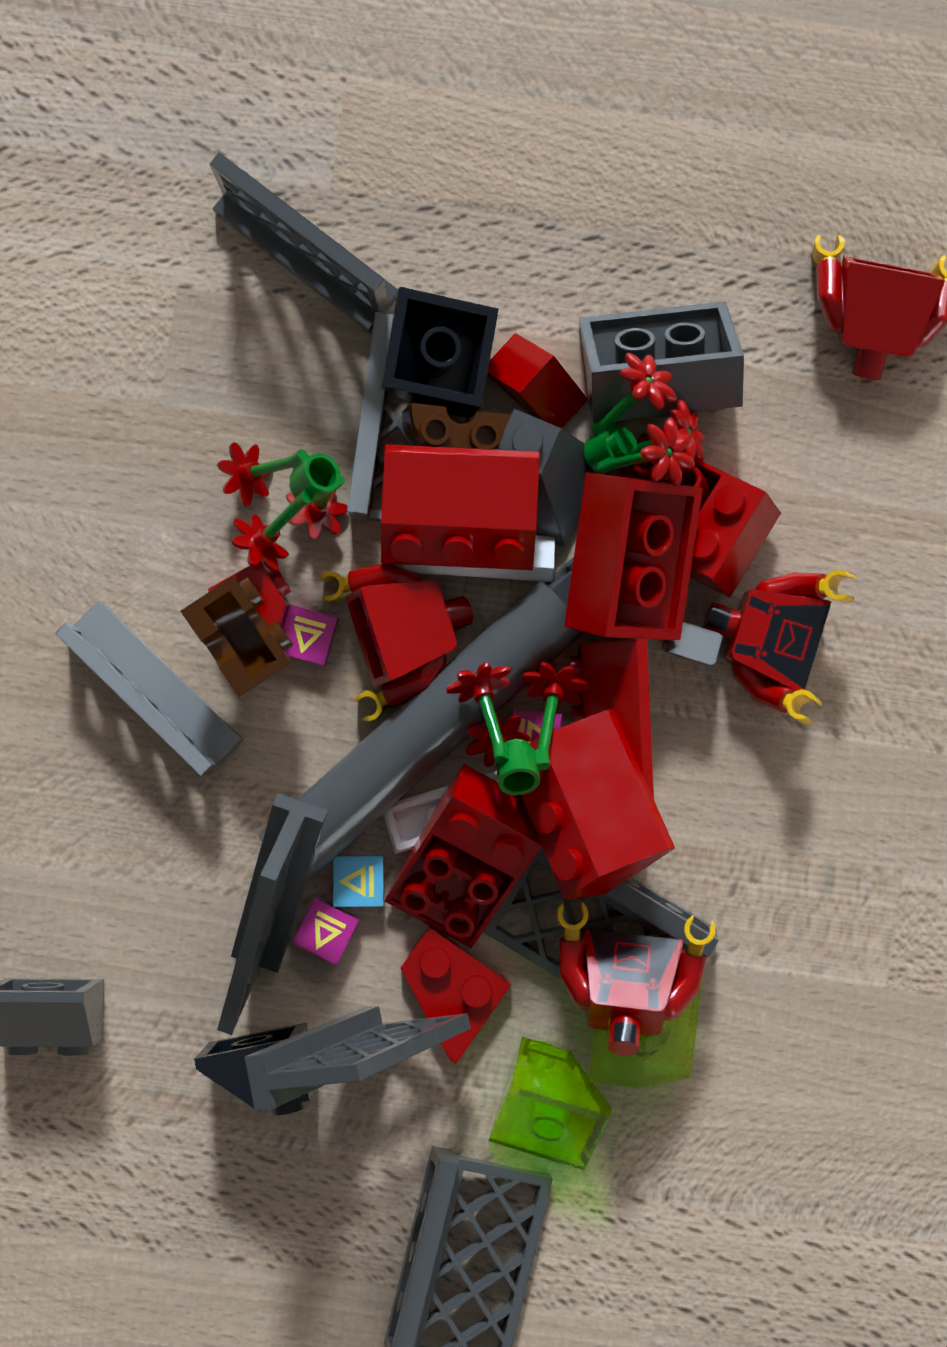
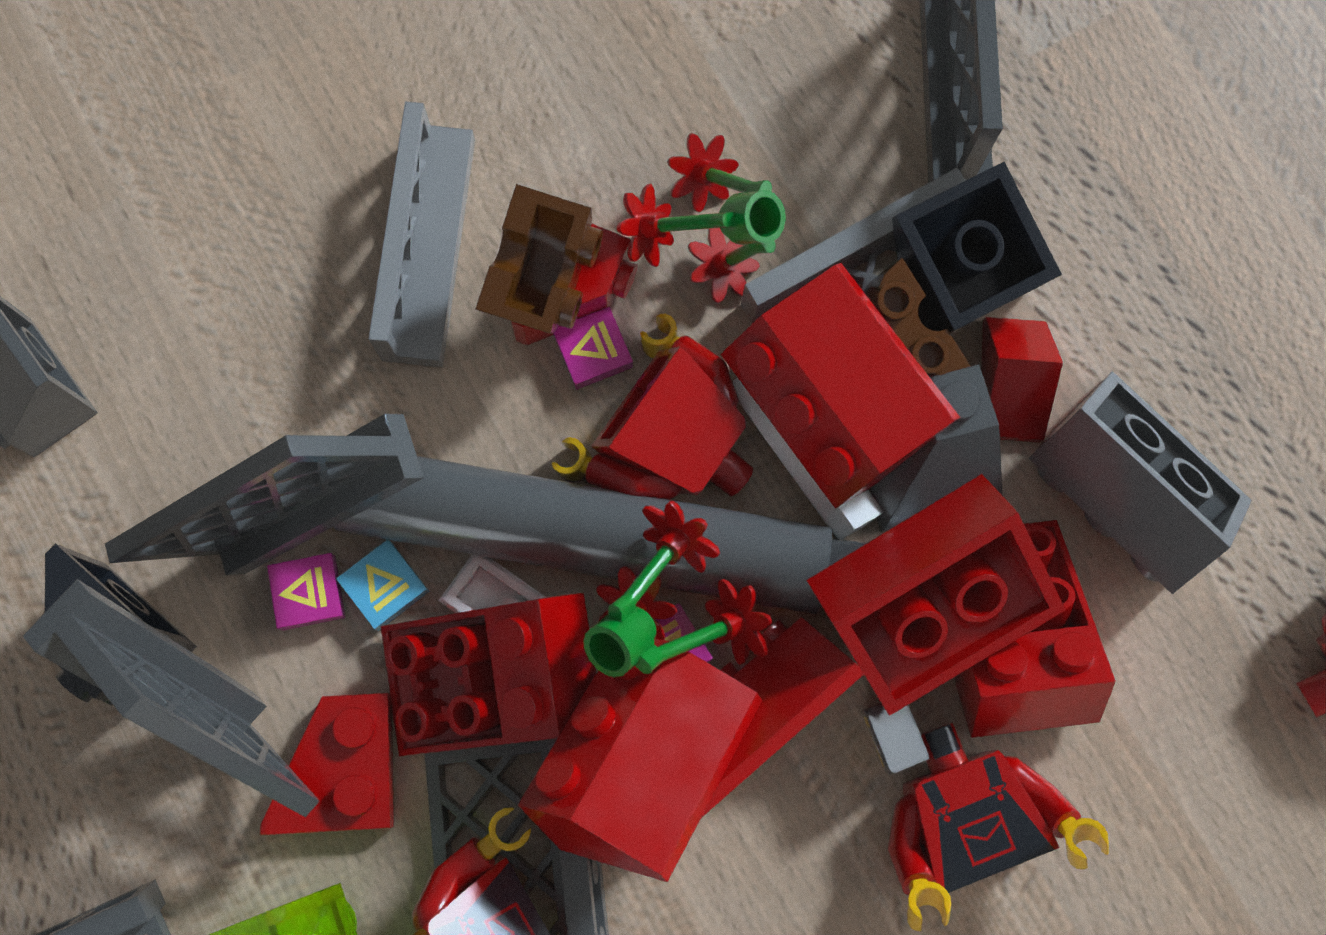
camera: 50 degrees right, 10 degrees down
(617, 448) = (1076, 535): red plant -> none

